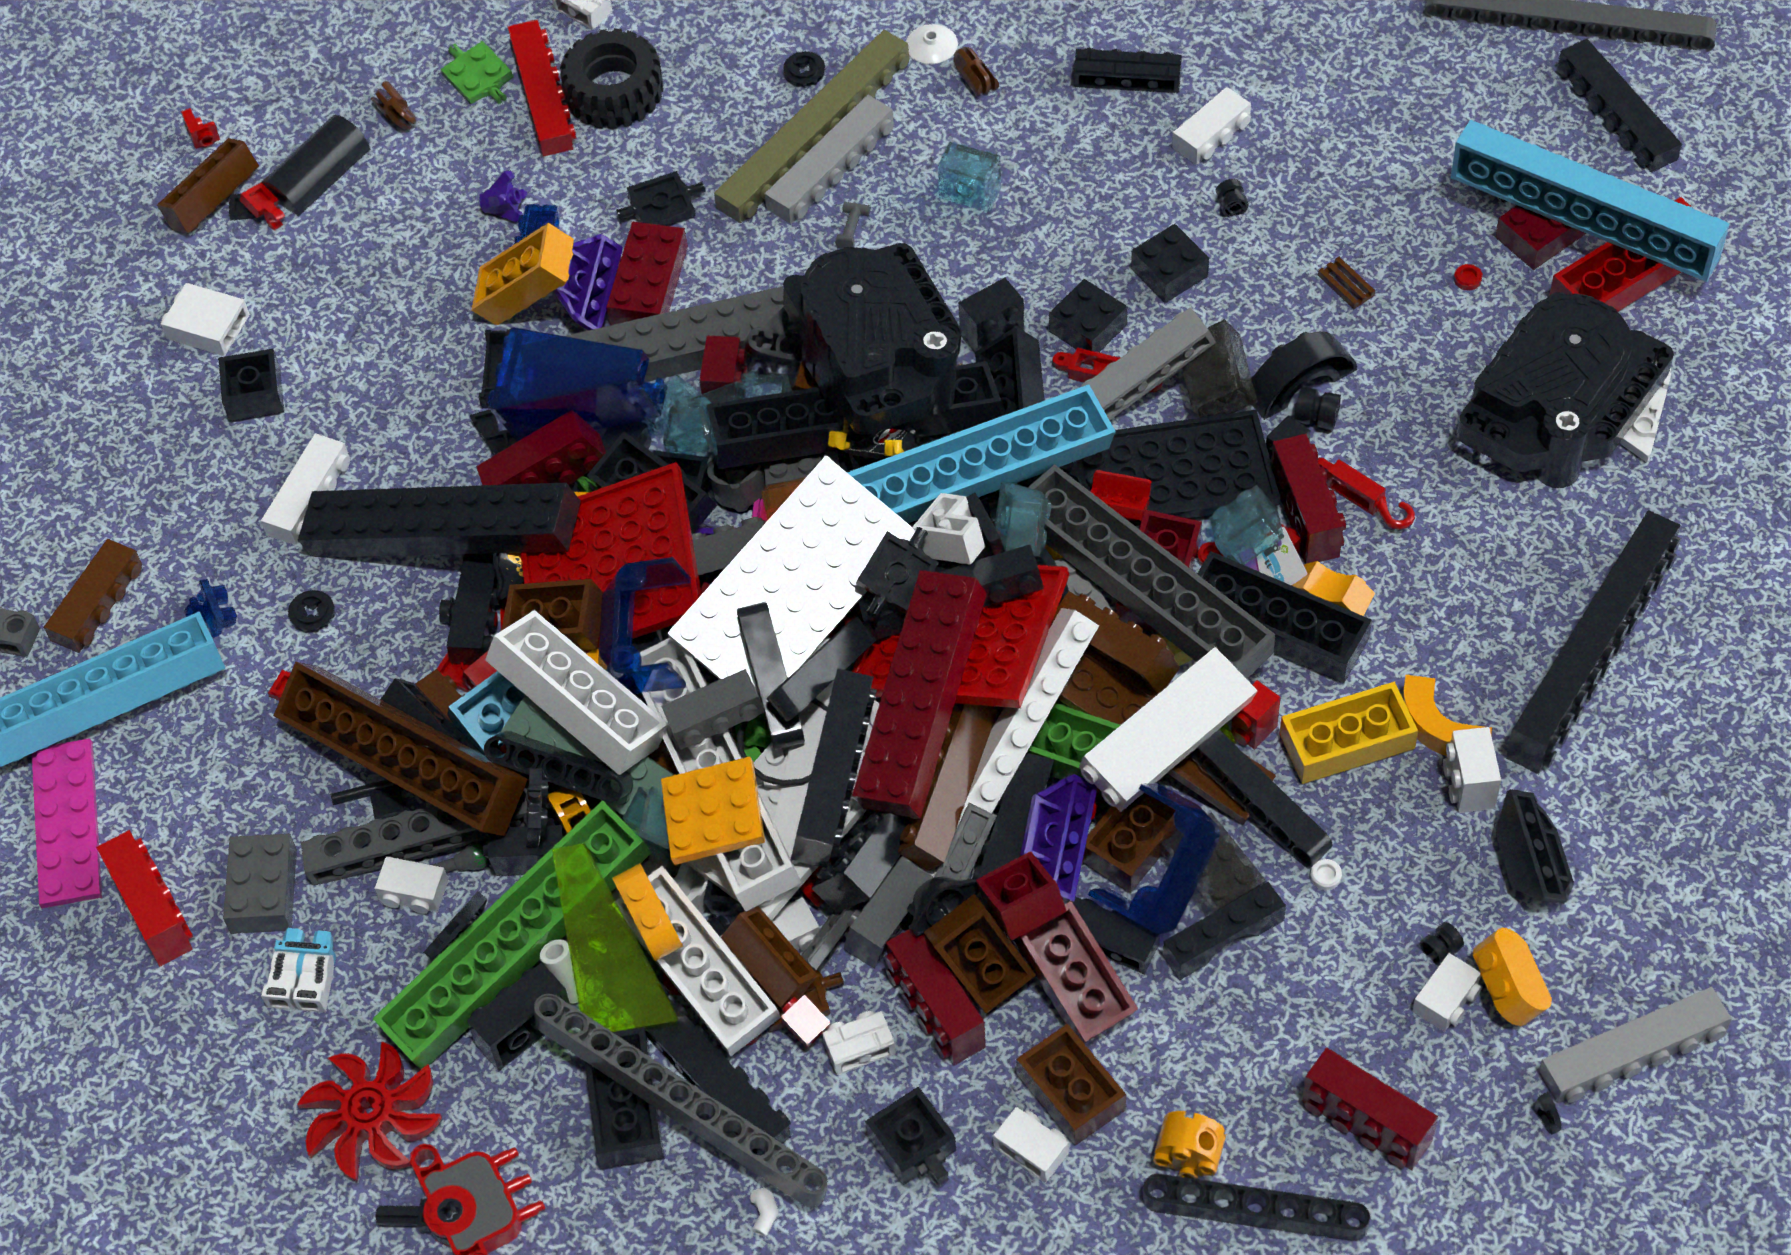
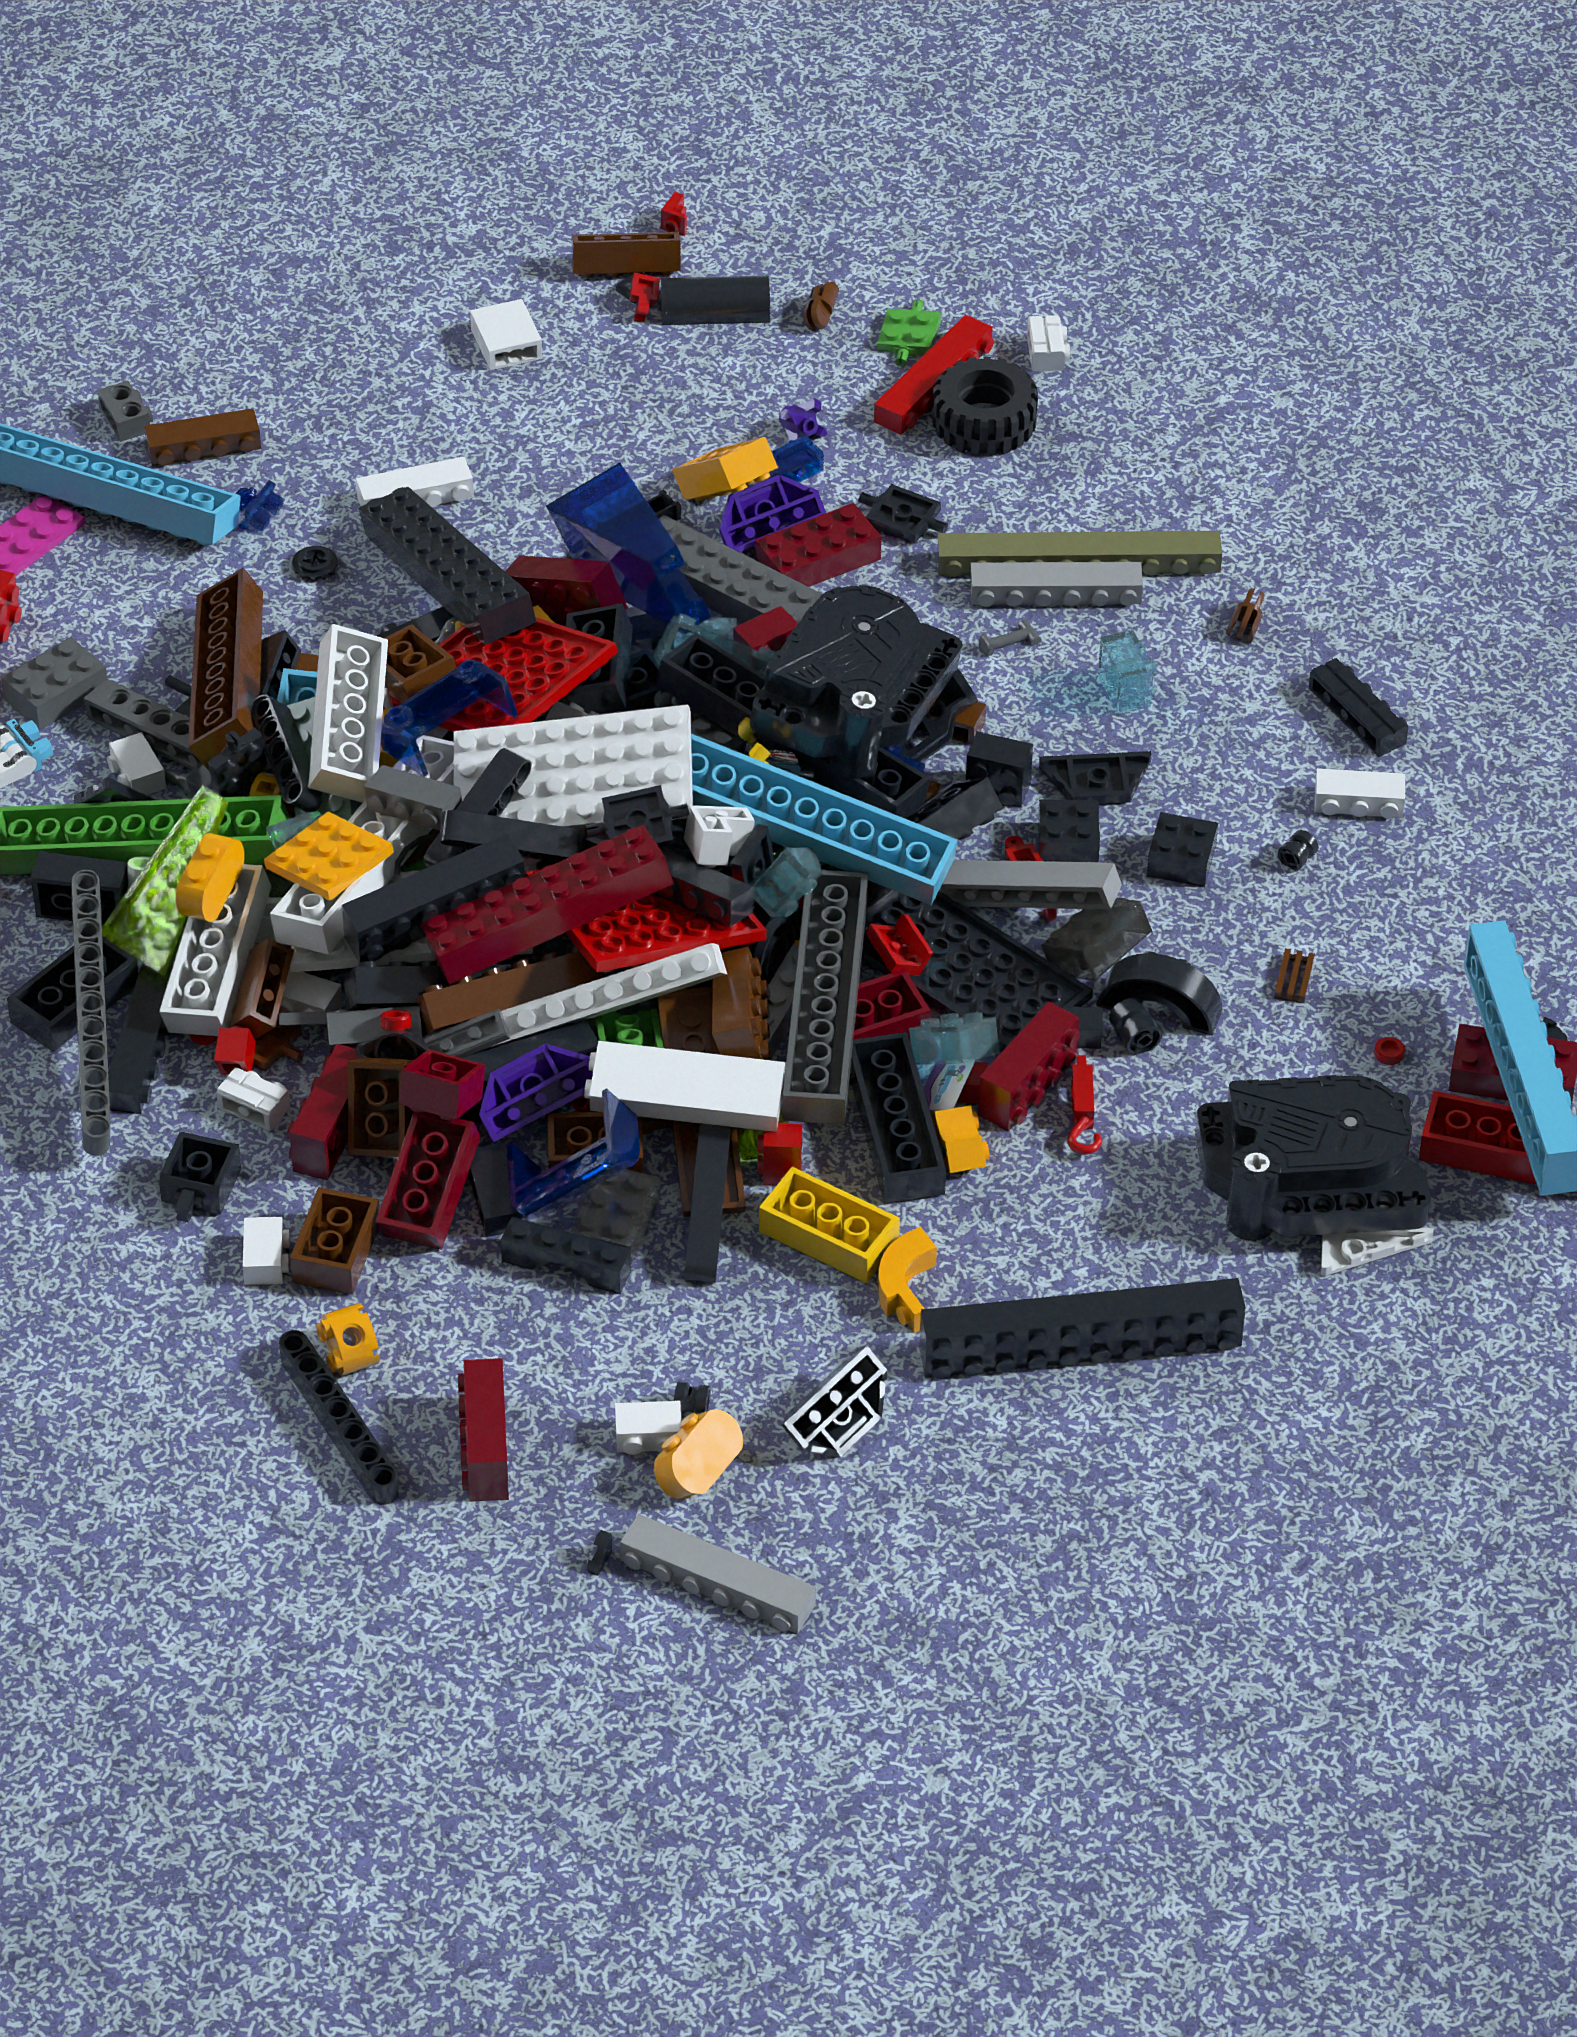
camera: 45 degrees right, 10 degrees down
(251, 384) = (471, 395): black brick -> none
(767, 1208) = (65, 1134): white arm -> none
(801, 60) = (1140, 507): black gear -> none
(910, 883) = (395, 1020): none -> red tile
(931, 44) = (1252, 573): white dish -> none
(1046, 264) = (1097, 776): none -> black wing
(1326, 874) = (687, 1294): white tile -> none
(1472, 770) = (871, 1317): white brick -> none

